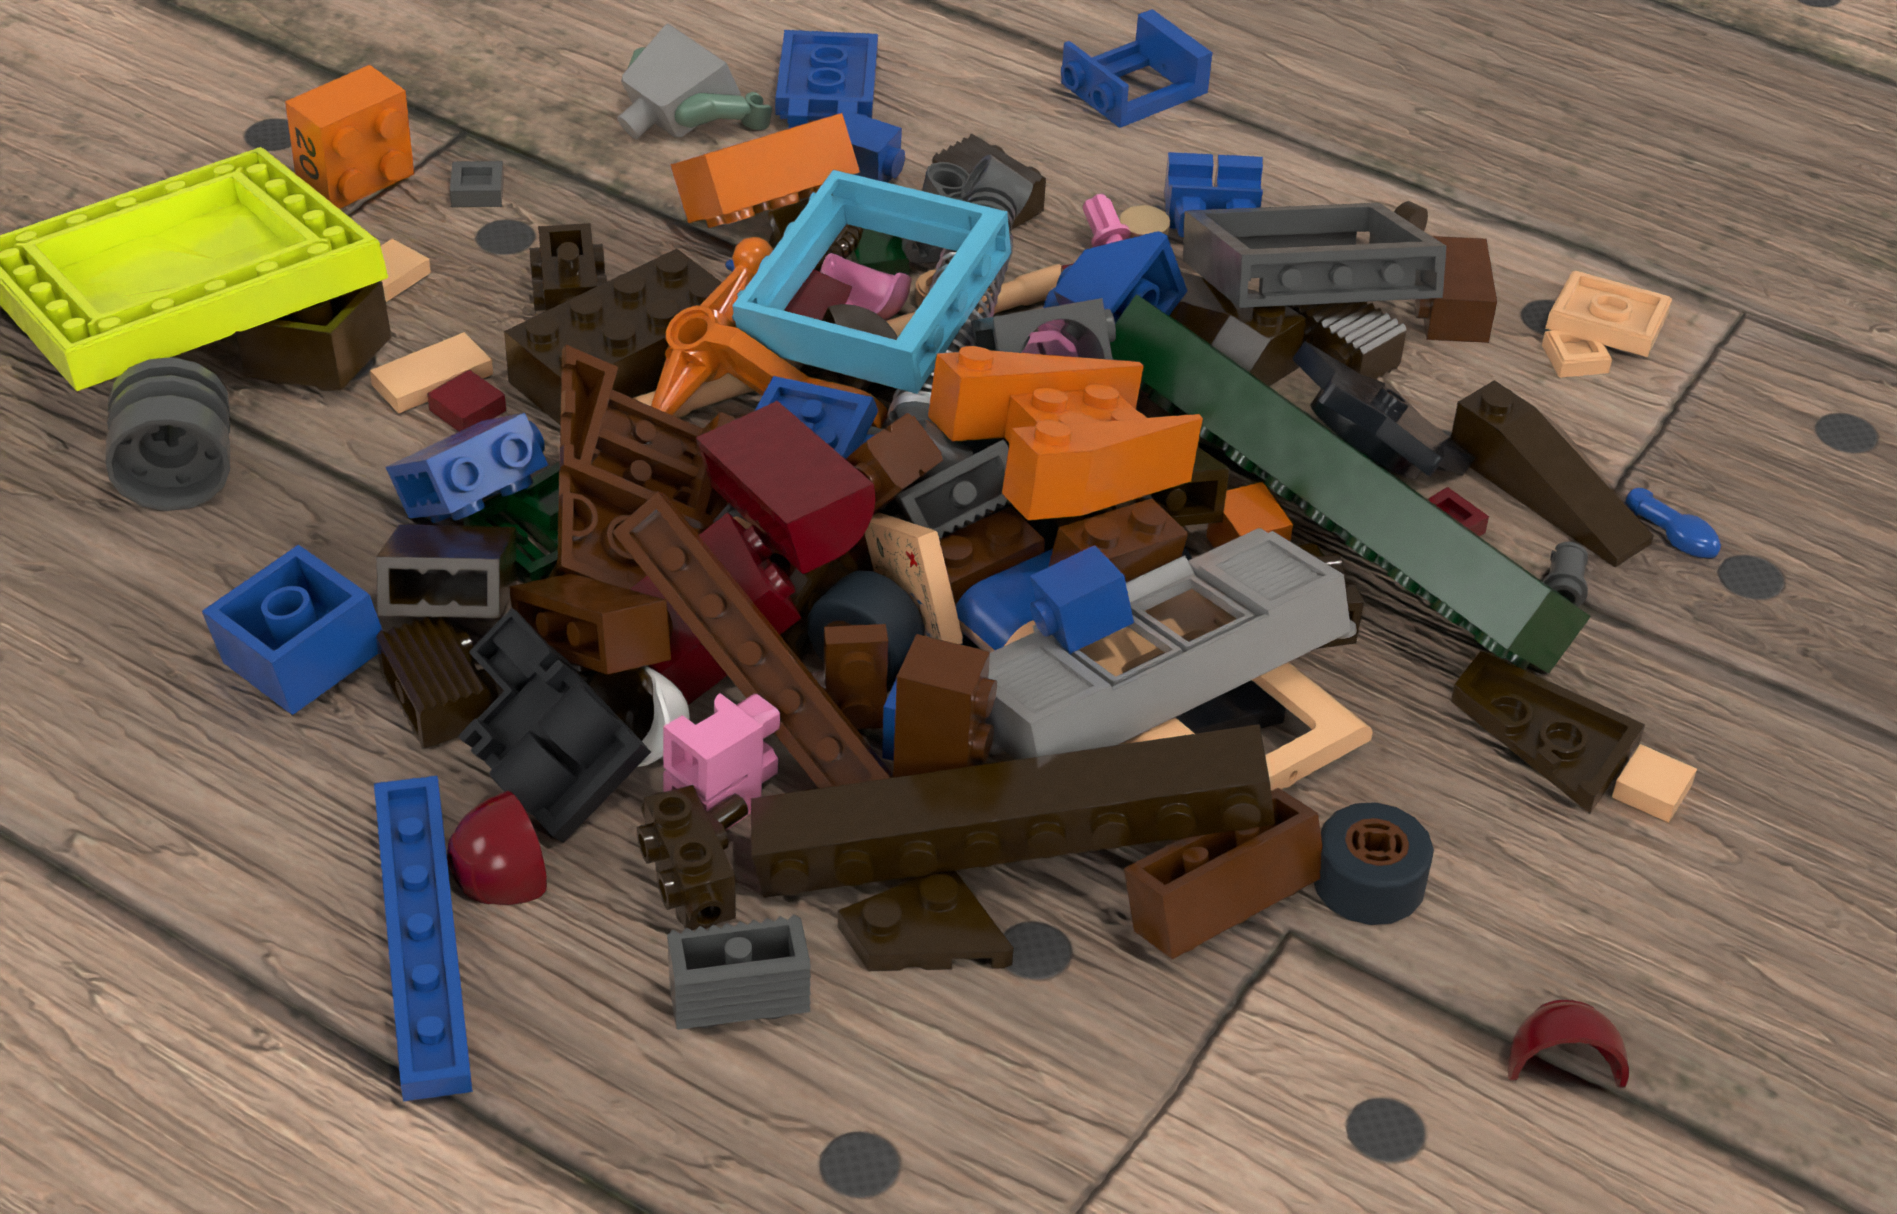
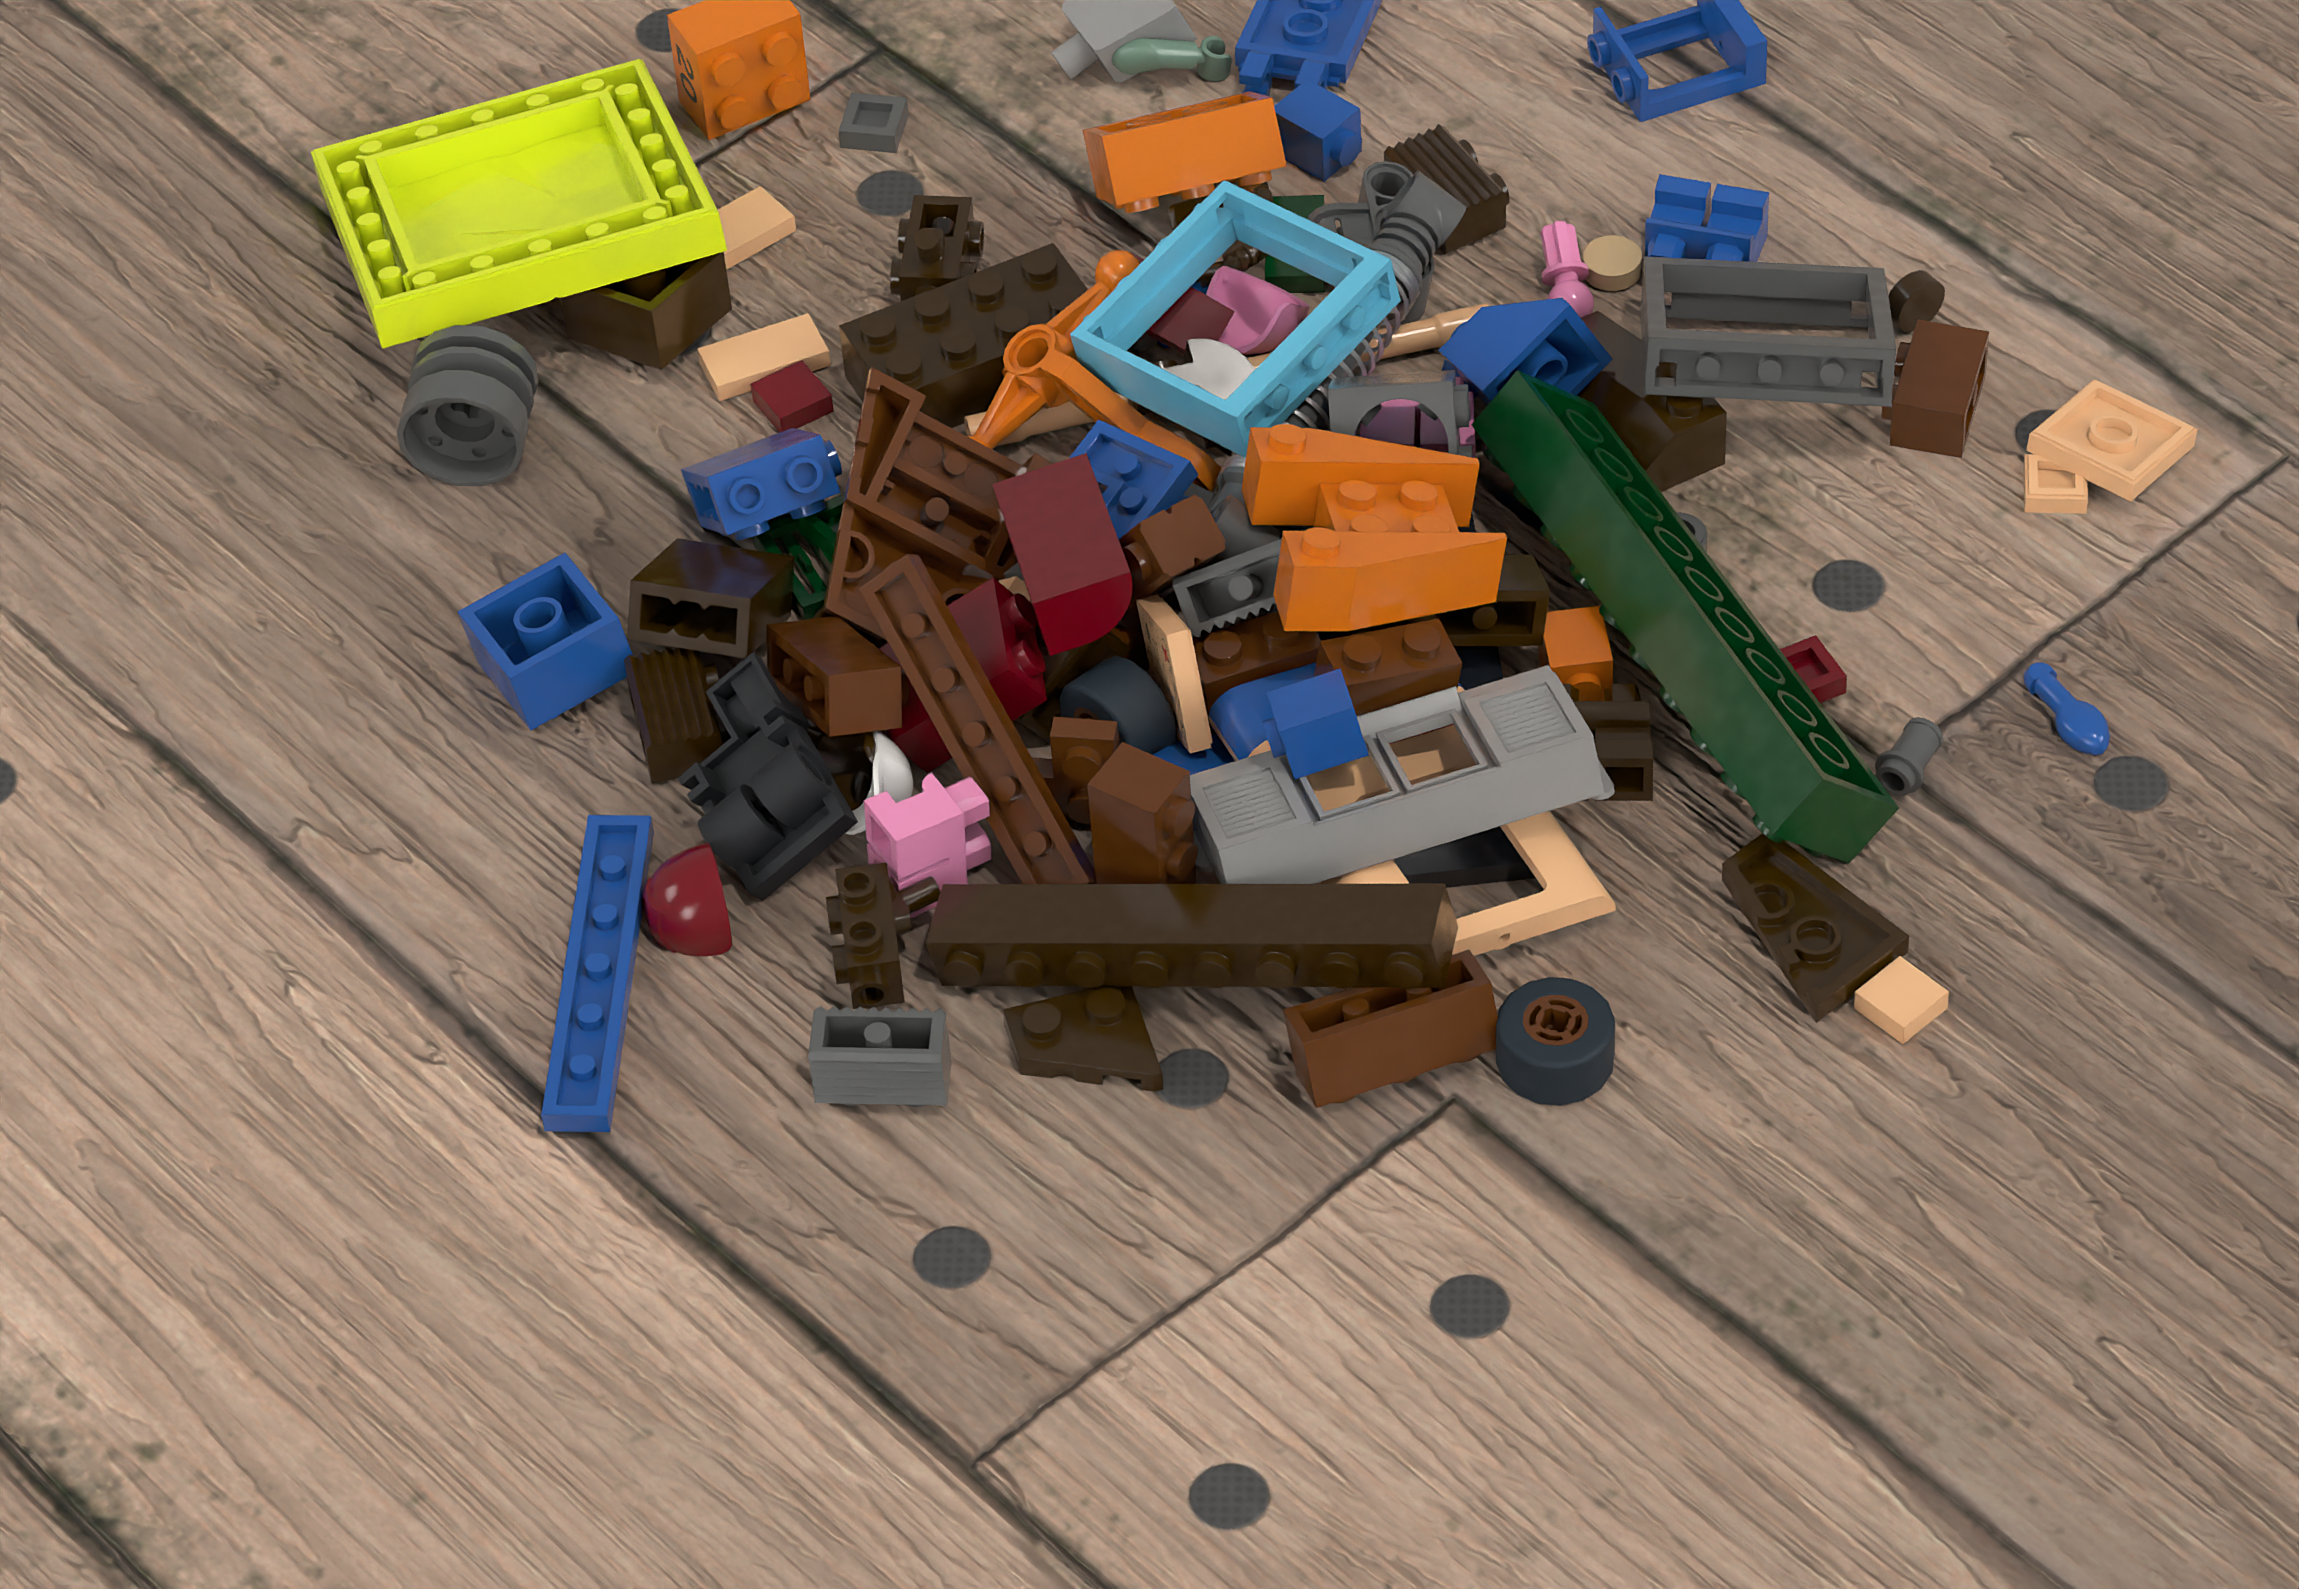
camera: 20 degrees right, 5 degrees up
(1355, 335) = (1786, 442): dark brown brick -> none
(1378, 419) = (1761, 545): black plate -> none
(1546, 472) = (1947, 624): dark brown wedge -> none
(1568, 1023) = (1683, 1233): dark red helmet -> none

